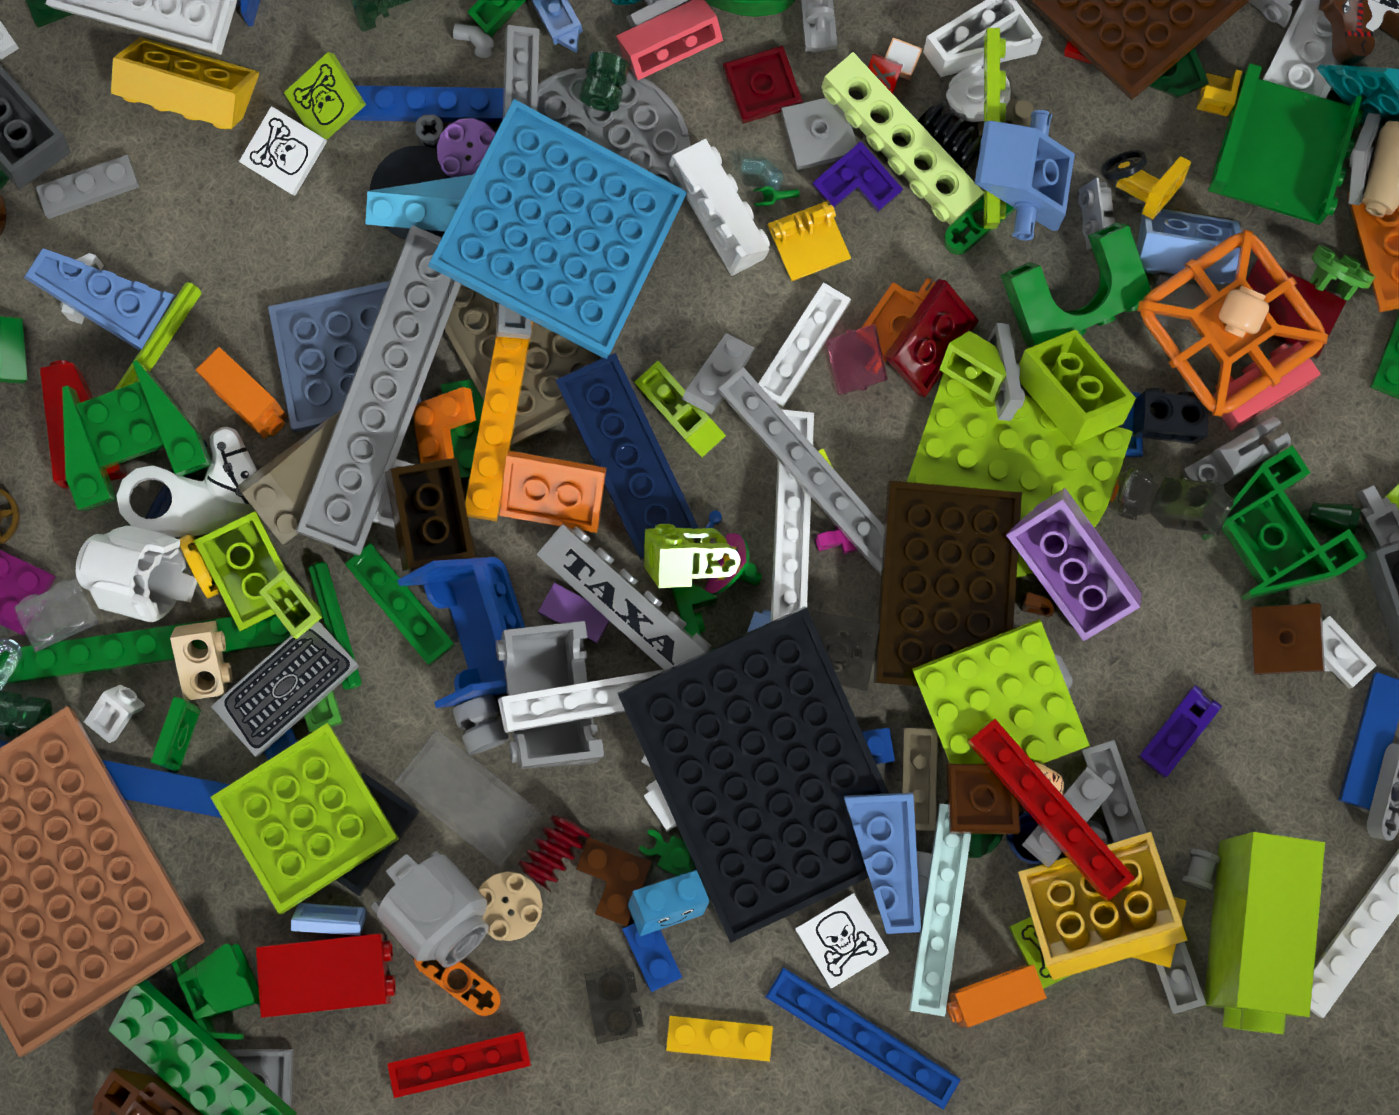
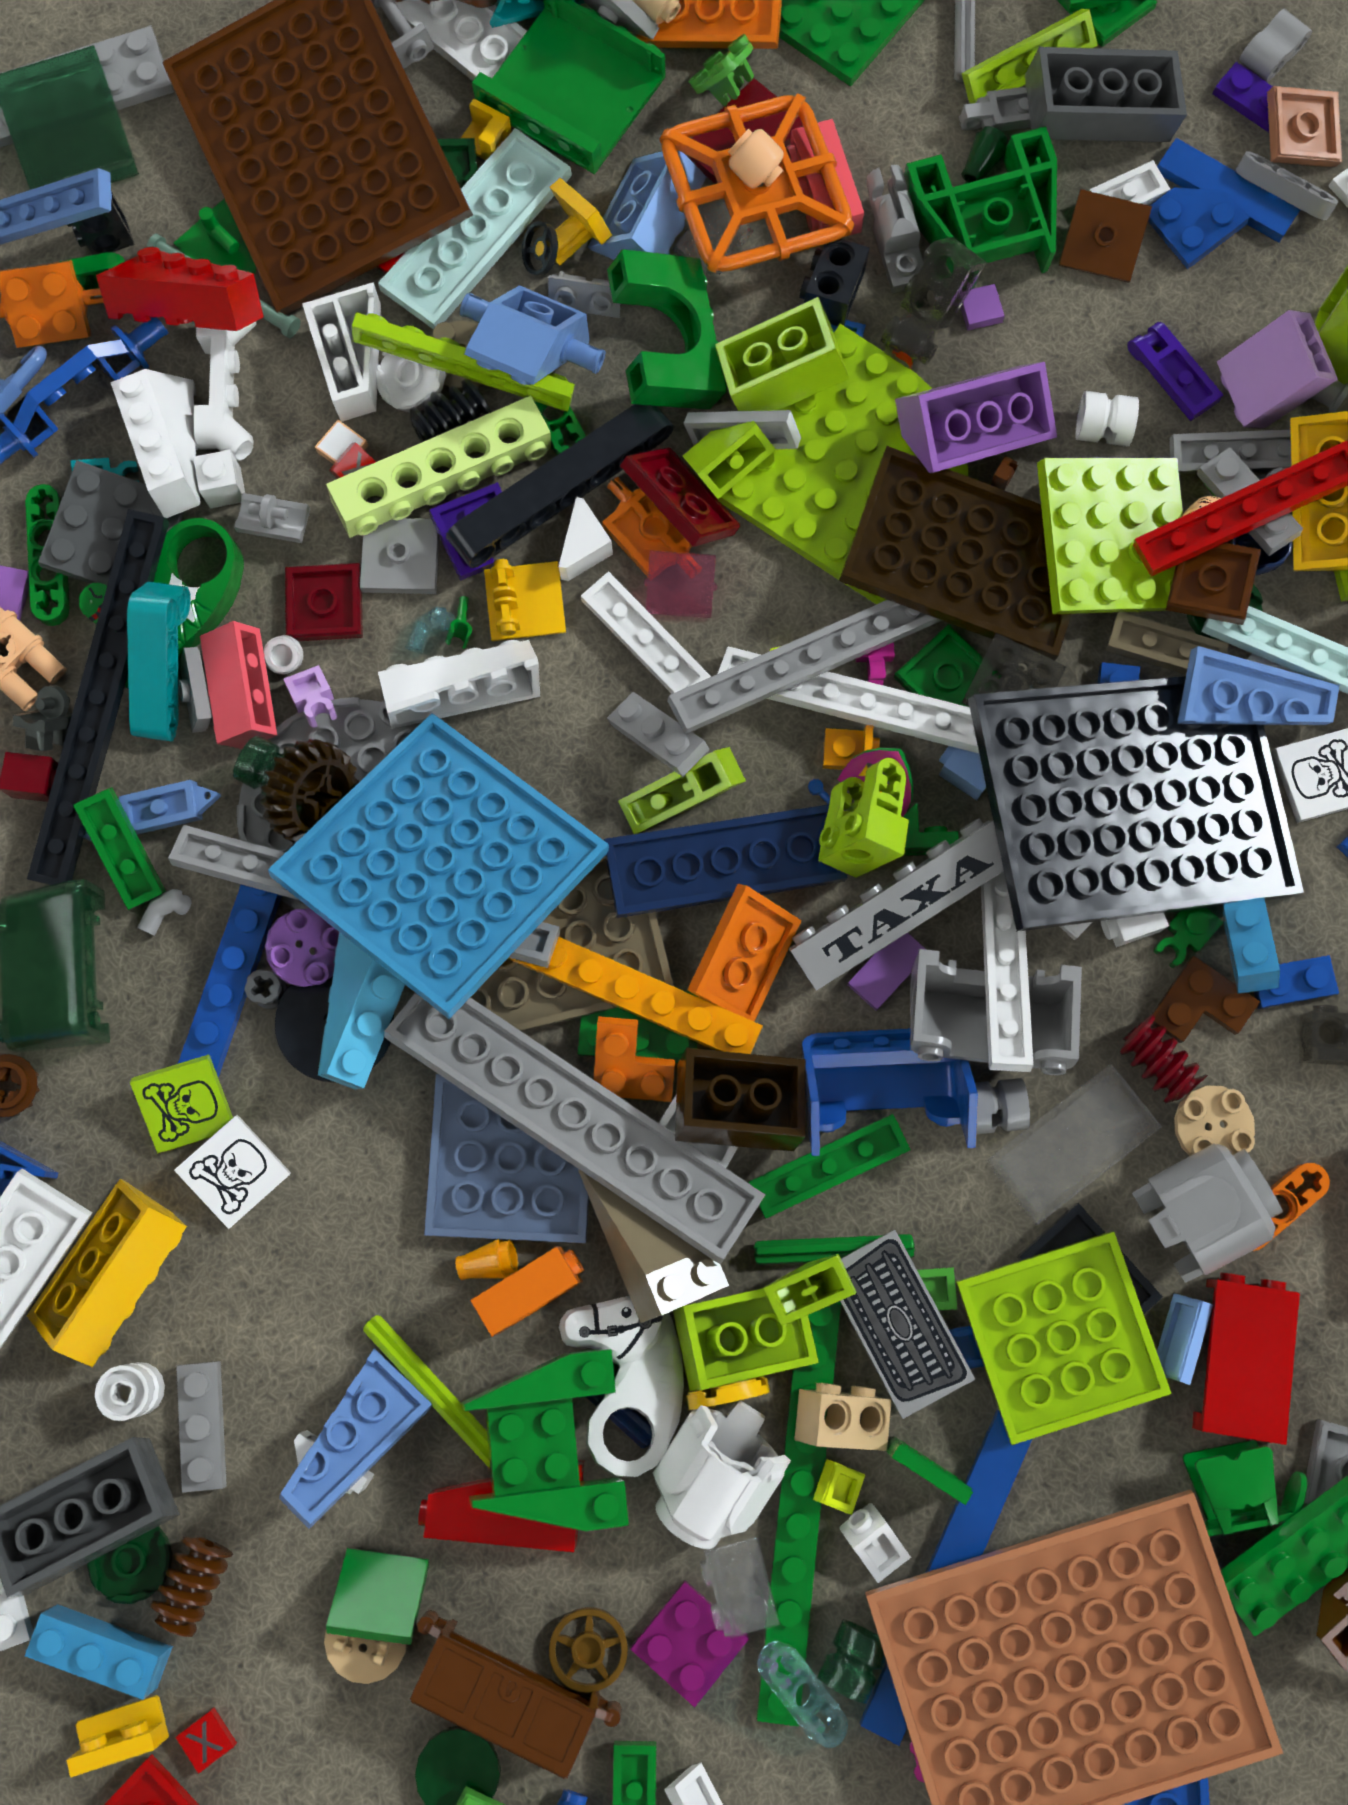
camera: 70 degrees left, 0 degrees up
(99, 125) = (129, 1391): none -> white wheel
(149, 674) = (839, 1487): none -> neon yellow tile
(260, 362) = (489, 1261): none -> light orange cone
(594, 108) = (306, 786): none -> dark brown gear
(679, 95) = (311, 694): none -> lavender plate
(708, 65) = (283, 654): none -> white tile
(756, 532) = (844, 744): none -> light orange bracket
(843, 593) = (941, 668): none -> green tile
(871, 272) = (584, 543): none -> white slope
(915, 237) = (557, 484): none -> black beam
(1112, 679) = (1107, 418): none -> white wheel
(1152, 121) = (504, 201): none -> light aqua plate
(1189, 550) = (982, 308): none -> medium lavender tile
(1197, 813) = (1276, 370): none -> lavender brick
(1330, 717) = (1196, 221): none -> blue plate

